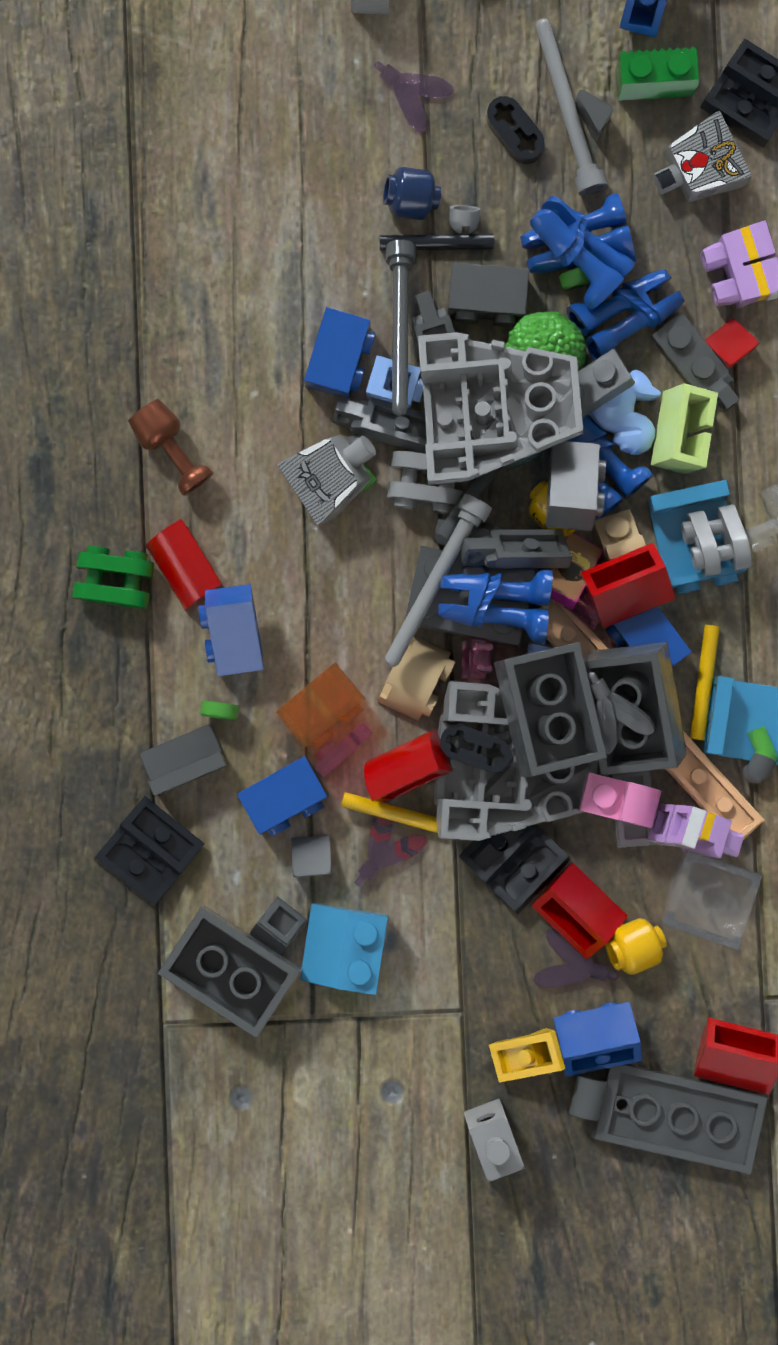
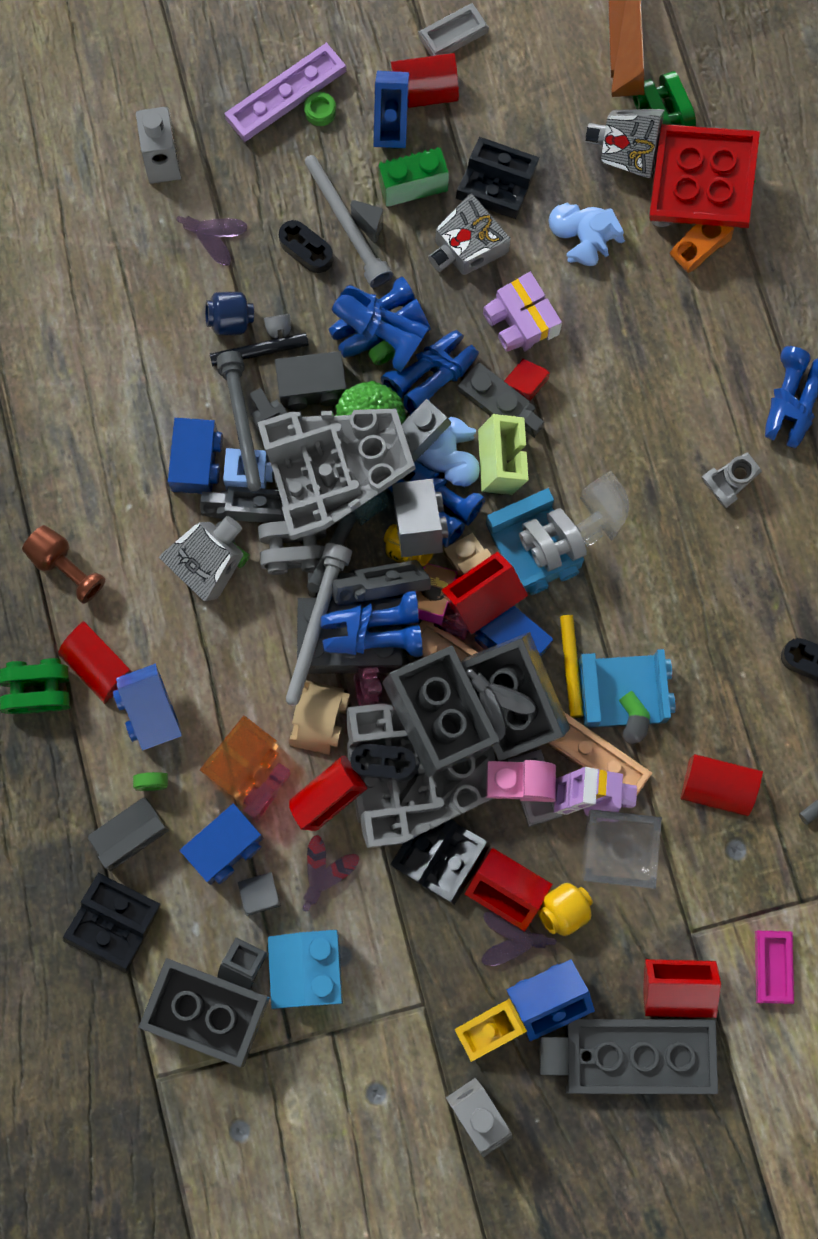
camera: 15 degrees left, 10 degrees down
(389, 812) = (321, 838): yellow bar -> none

